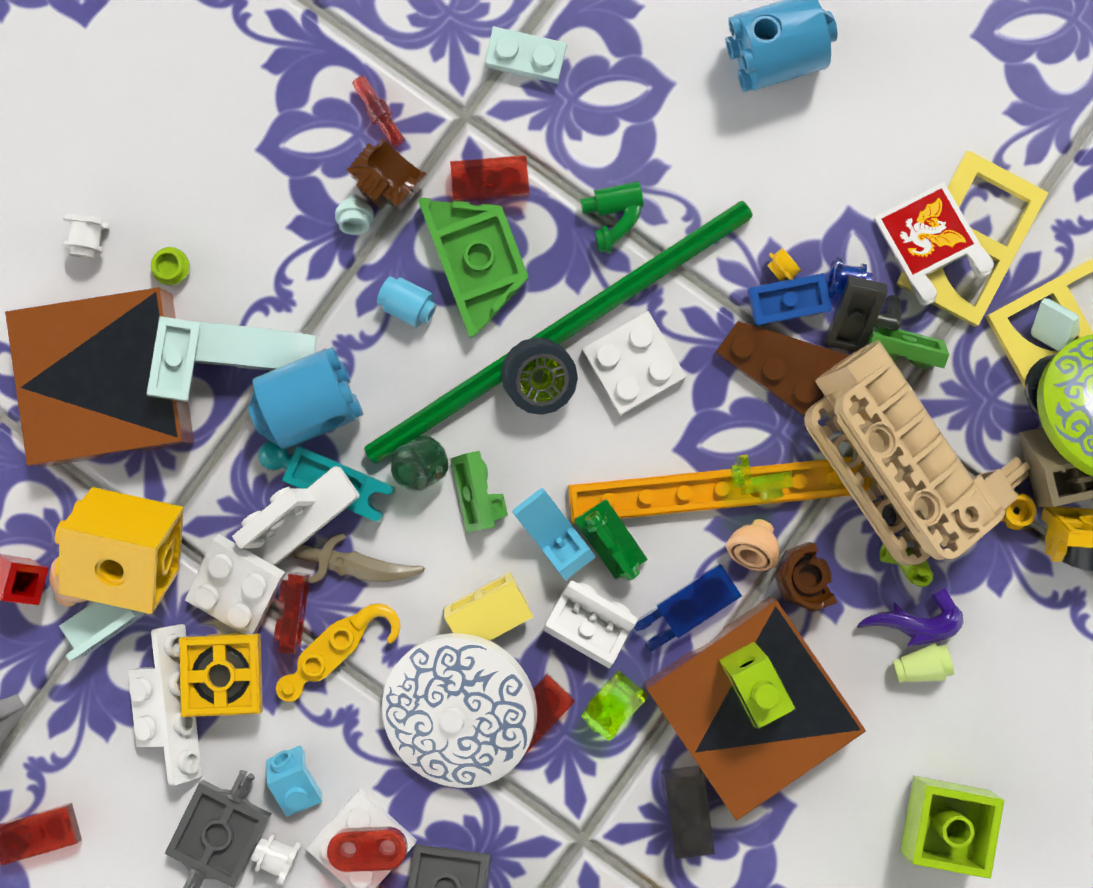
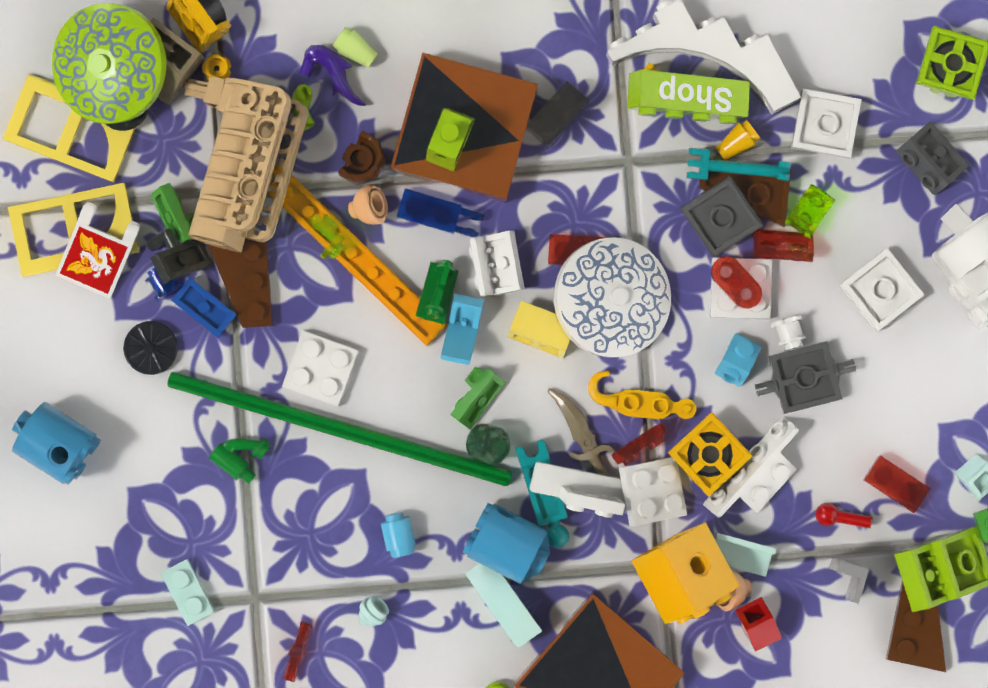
camera: 130 degrees left, 0 degrees up
(67, 739) = (828, 515): none -> red bar
(173, 359) = (548, 638): light aqua plate -> none
(385, 176) = (333, 610): reddish brown hair -> none
(476, 257) = (336, 516): bright green wing -> none
(489, 178) = (282, 548): clear red plate -> none
(557, 381) = (369, 405): wheel -> none
(613, 705) = (533, 210): clear neon green bracket -> none
(783, 265) = (186, 328): yellow plate -> none
(793, 216) = (150, 347): none -> black wheel
(1055, 325) = (87, 137): light aqua slope -> none

